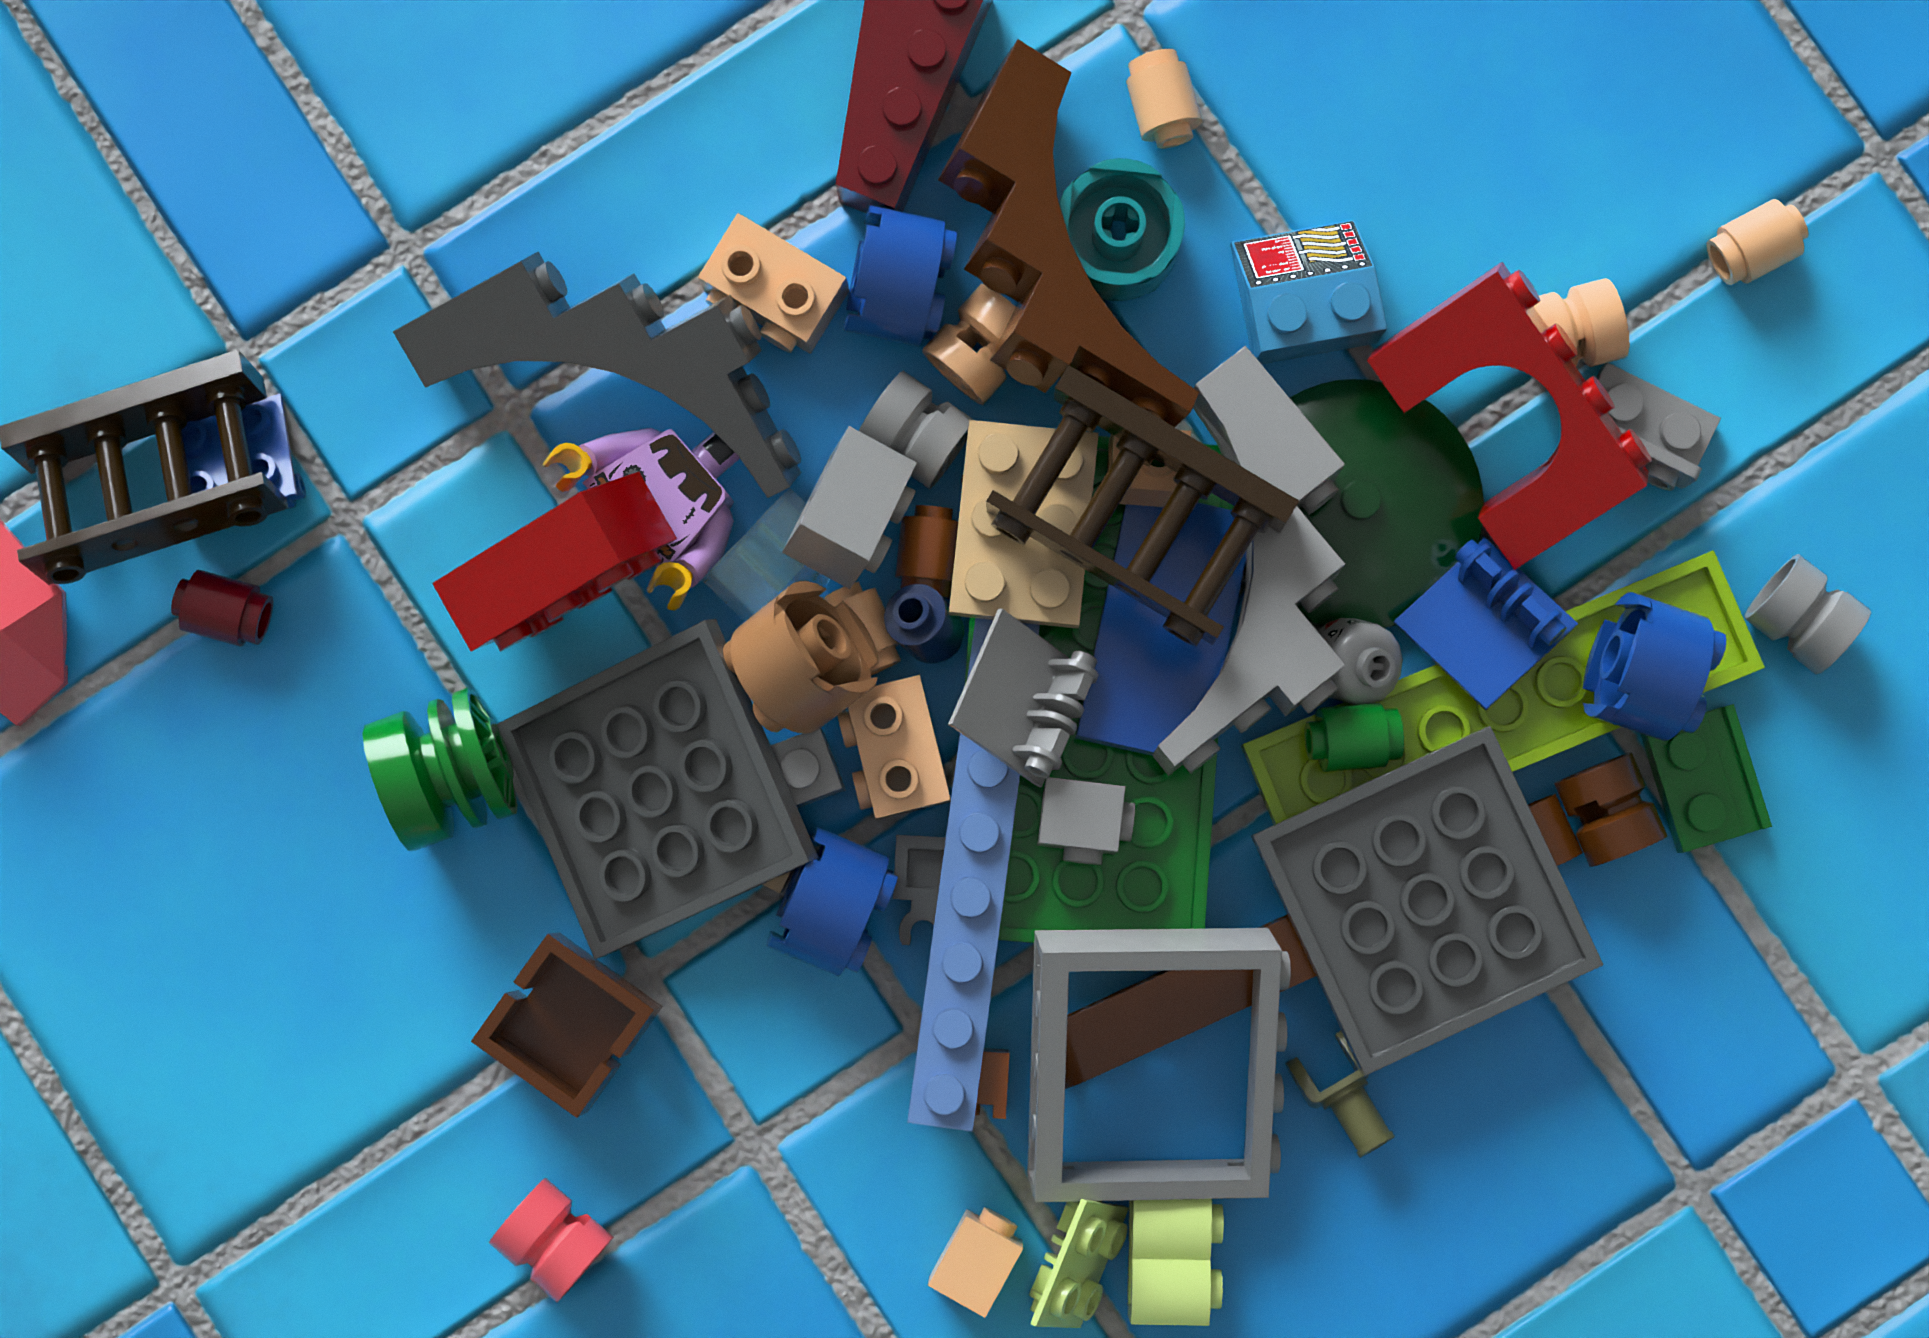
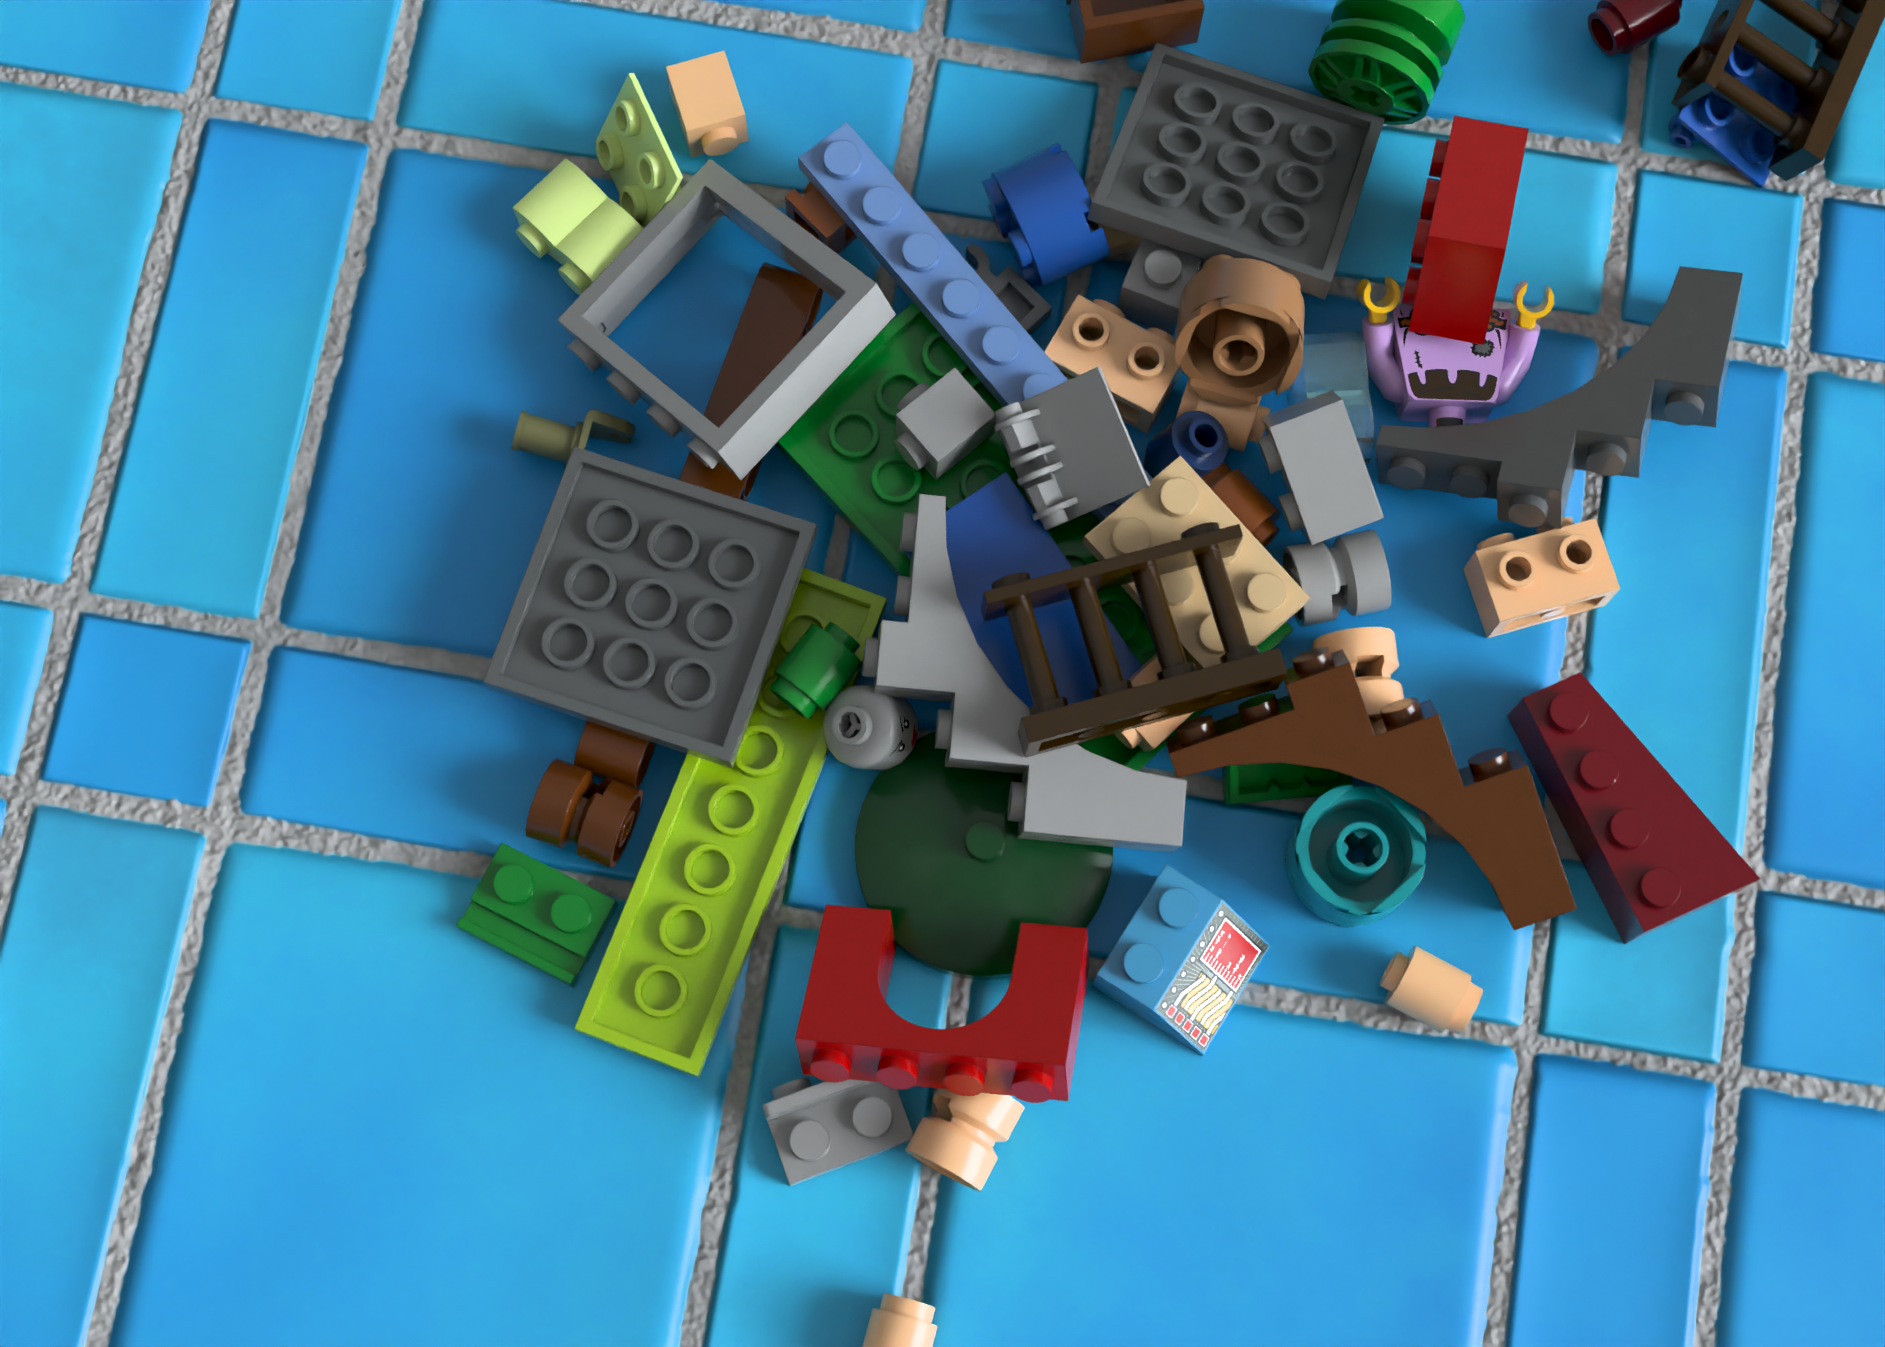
camera: 125 degrees right, 10 degrees down
(898, 276) = (1467, 659): blue brick -> none
(1485, 623) = (806, 847): blue hinge -> none
(1652, 668) = (657, 919): blue brick -> none
(1815, 620) = (581, 1099): light grey wheel -> none

